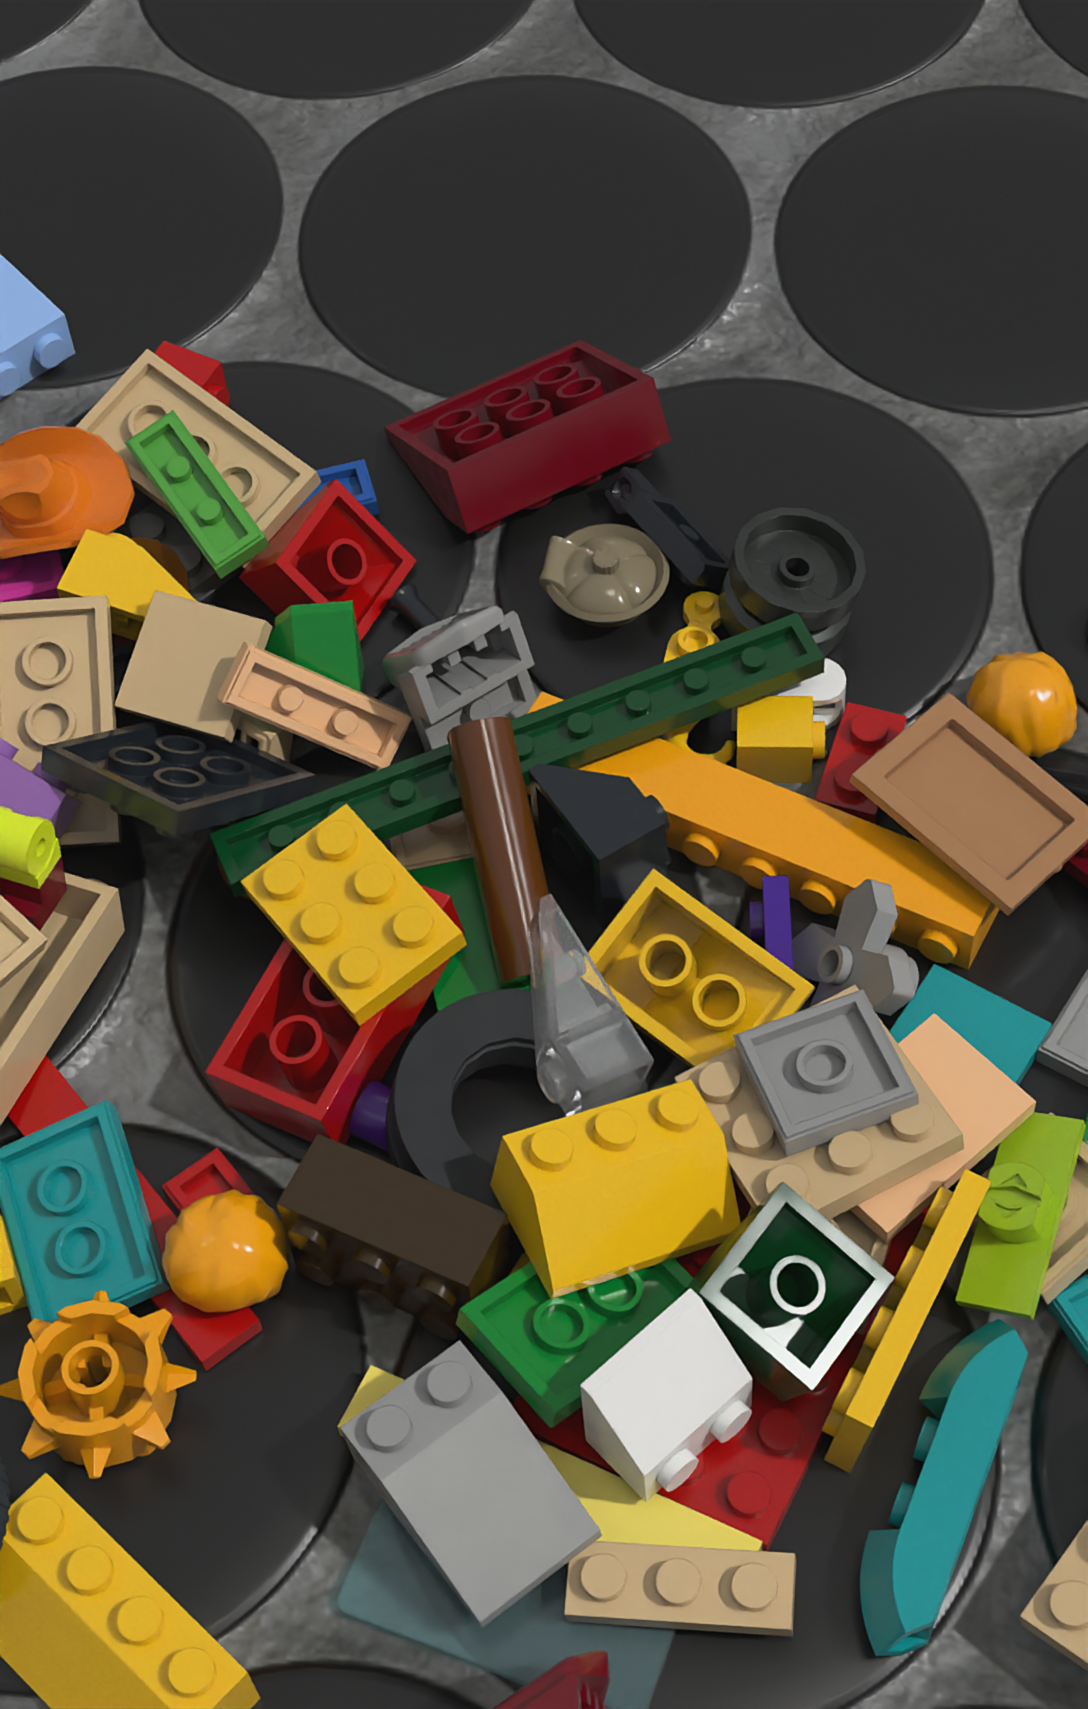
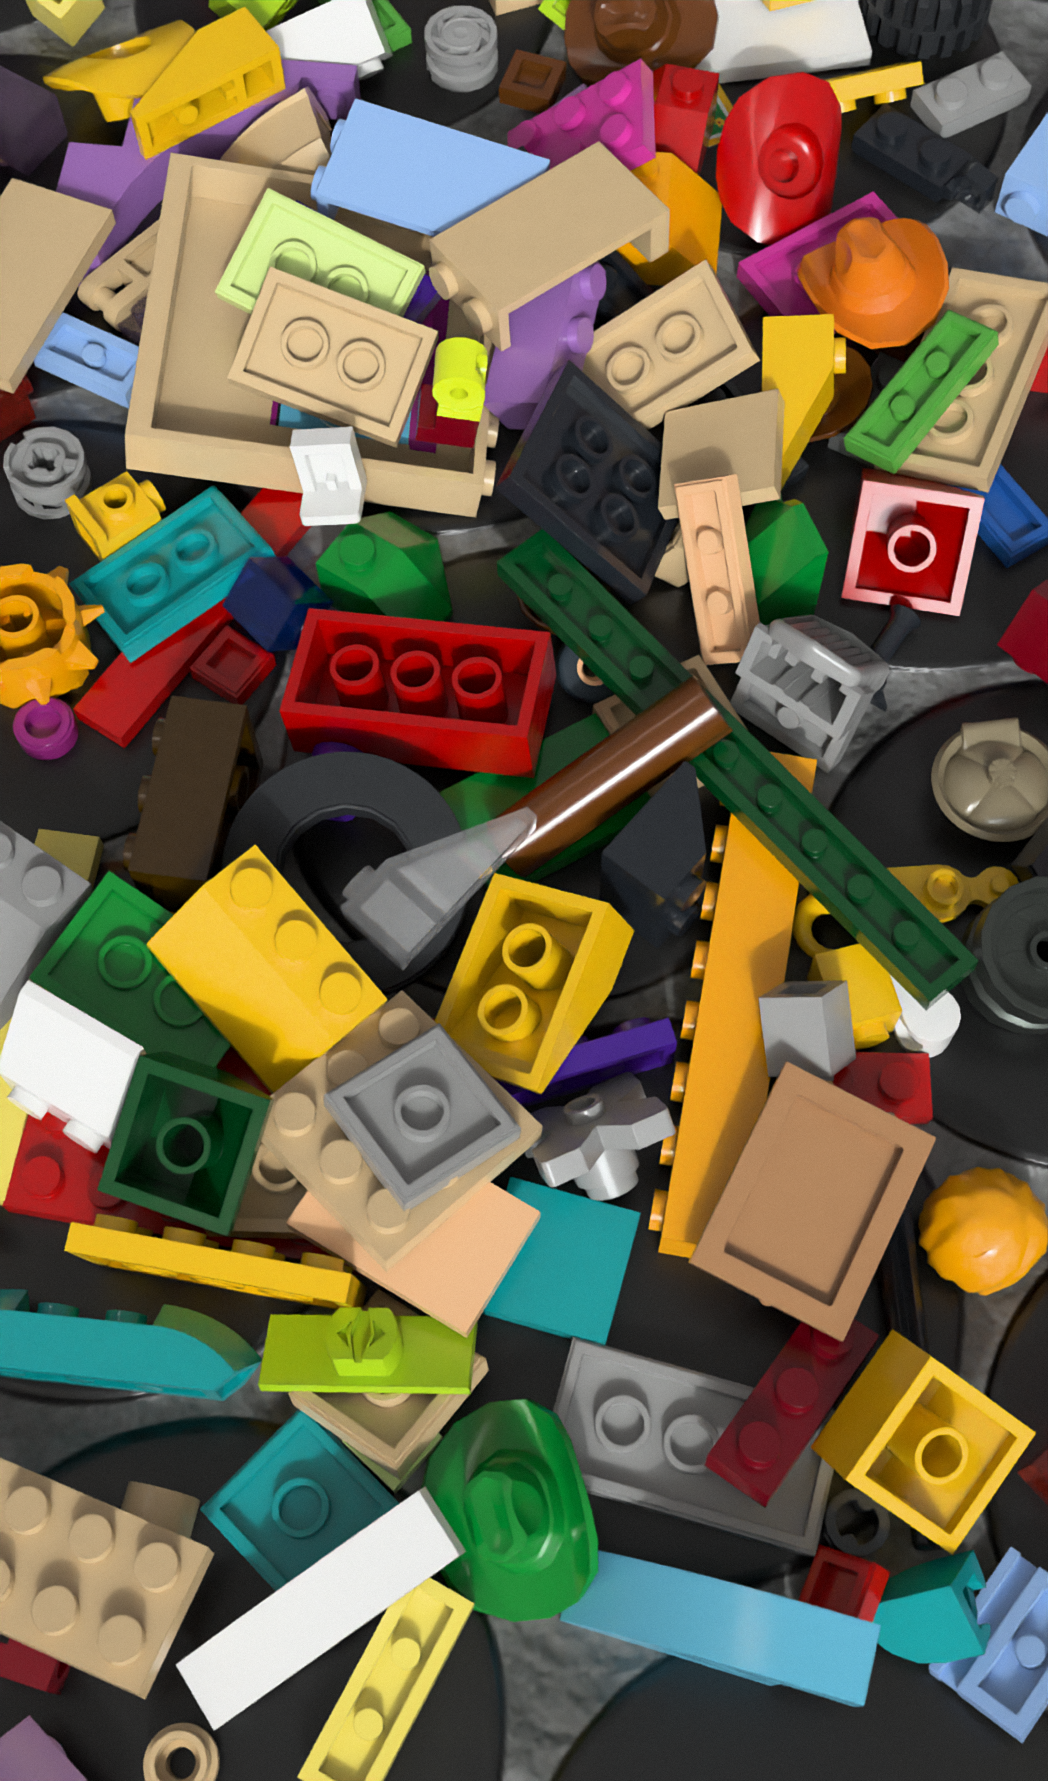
camera: 70 degrees right, 10 degrees up
(63, 1009) = (329, 475): none -> white bracket
(170, 1019) = (386, 570): none -> green slope
(170, 1118) = (274, 601): none -> clear blue brick
(210, 1405) = (46, 730): none -> magenta tile
(226, 1252) = (145, 676): light orange hair -> none
(353, 914) = (482, 664): yellow plate -> none
(812, 763) = (808, 1027): none -> light grey brick

